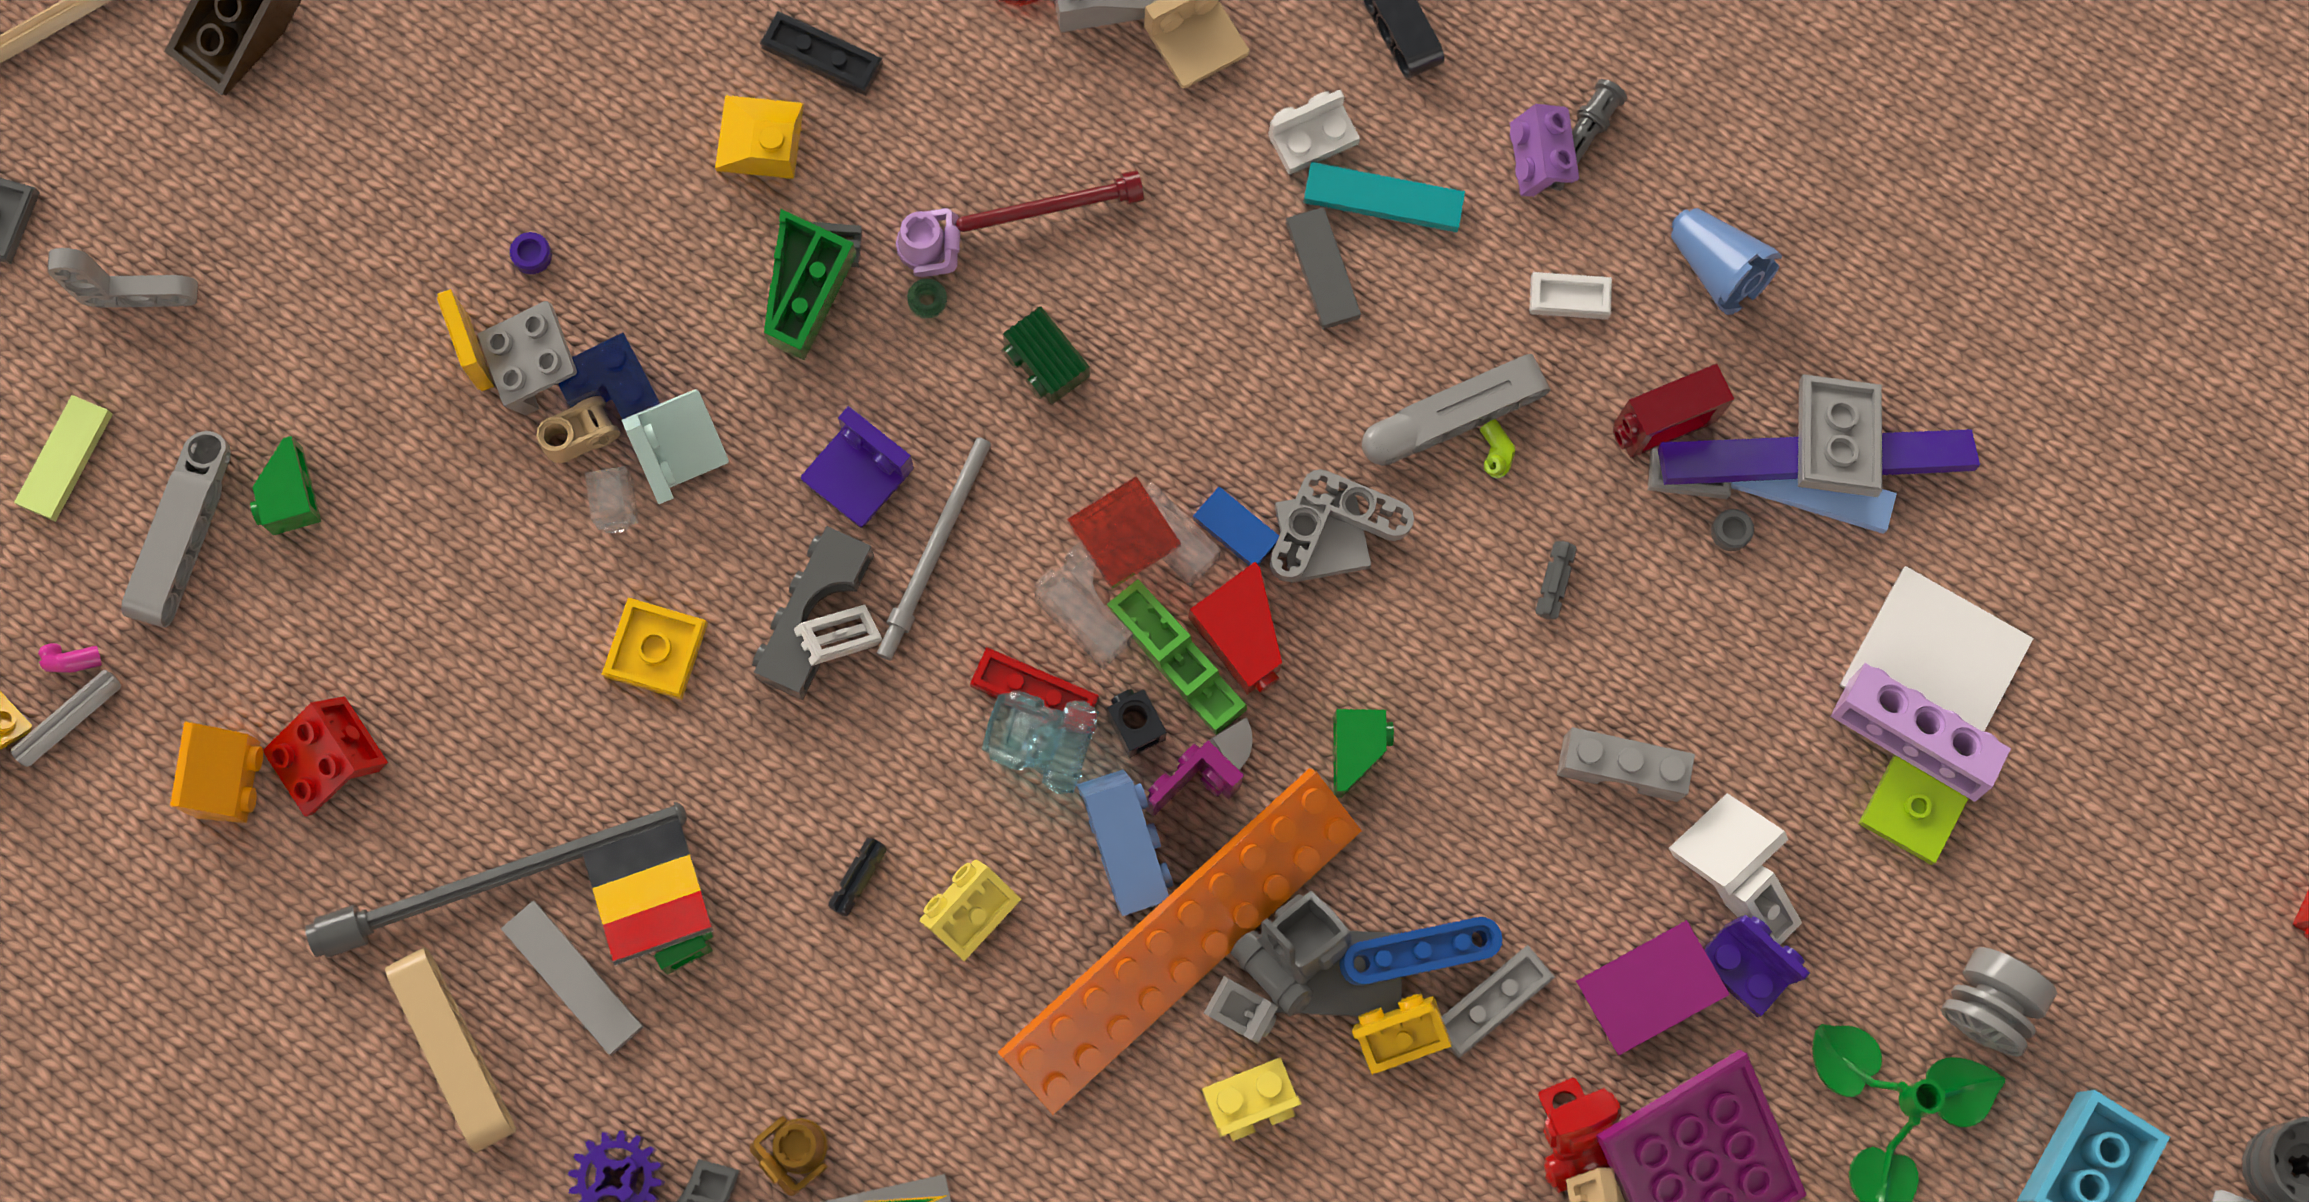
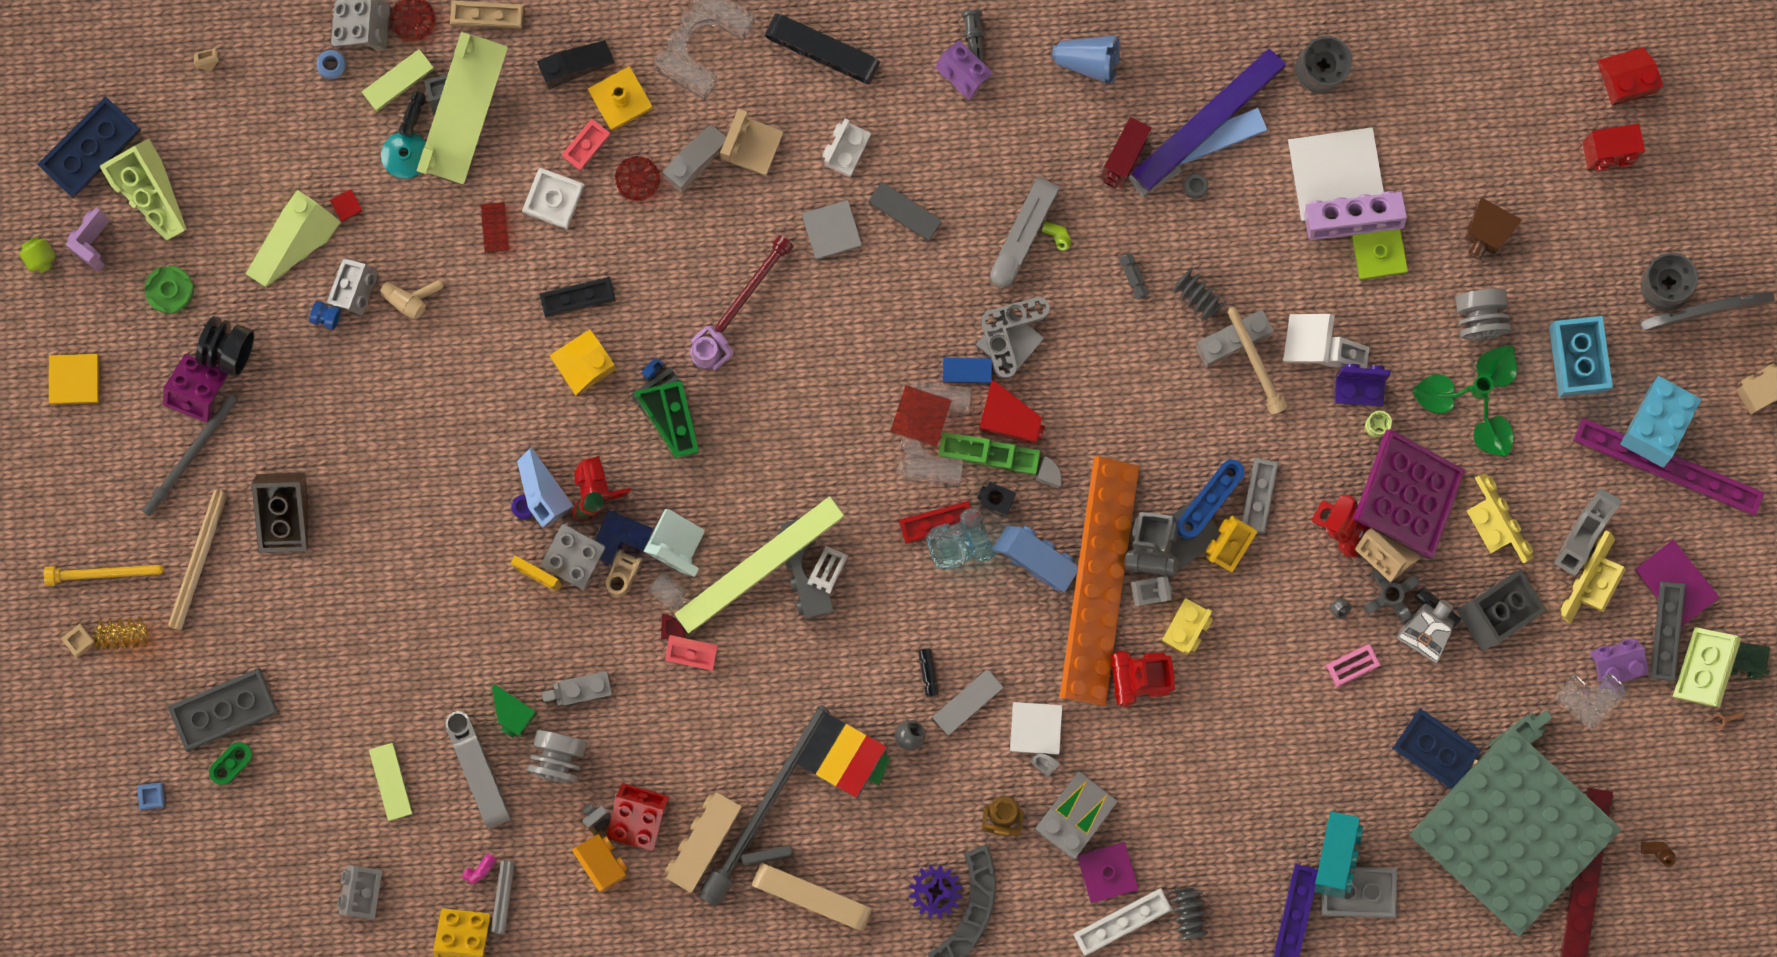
camera: 35 degrees left, 5 degrees up
(95, 288) = (335, 689): light grey beam -> none
(268, 714) = (596, 819): none -> dark grey tile
(284, 591) = (557, 756): none -> light grey wheel
(374, 858) = (703, 843): none -> tan brick
(396, 534) = (579, 689): none -> light grey hinge
(439, 944) = (767, 855): none -> dark grey tile
(564, 254) = (541, 490): none -> light blue slope
(572, 978) = (838, 822): light grey tile -> none
(574, 600) = (691, 652): none -> coral plate
(579, 551) = (672, 627): none -> dark red tile
(627, 295) = (593, 489): none -> red piece
(654, 648) = (745, 644): yellow tile -> none
(756, 557) = (759, 565): none -> yellowish green tile
(761, 939) = (910, 735): none -> dark grey piece
(836, 209) = (652, 369): none -> blue tile
(858, 469) = (769, 485): dark purple bracket -> none
(874, 959) = (967, 702): none -> light grey tile
(902, 618) = (848, 538): light grey bar -> none
(907, 1126) = (1044, 763): none -> light grey tile
(927, 287) = (731, 369): clear green plate -> none
(936, 1068) = (1036, 728): none -> white tile
(969, 908) = (991, 645): light yellow bracket -> none
(1045, 356) = (811, 361): dark green brick -> none
(1134, 1115) = (1141, 676): none -> red piece
(1209, 218) = (831, 230): none -> light grey tile
(1217, 772) = (1054, 493): magenta bracket -> none
(1358, 744) = (1106, 428): green slope -> none
(1384, 197) = (905, 153): teal tile -> none
(1570, 295) = (1031, 131): white tile -> none
(1614, 893) = (1275, 402): none -> tan piece
(1622, 670) = (1198, 295): none -> dark grey piece
(1652, 987) = (1325, 431): magenta tile -> none
(1742, 1033) = (1377, 424): none -> yellowish green wheel
(1840, 435) = (1211, 102): light grey tile -> none
(2053, 499) = (1334, 57): none -> dark grey wheel
(2095, 894) = (1489, 228): none -> reddish brown torso

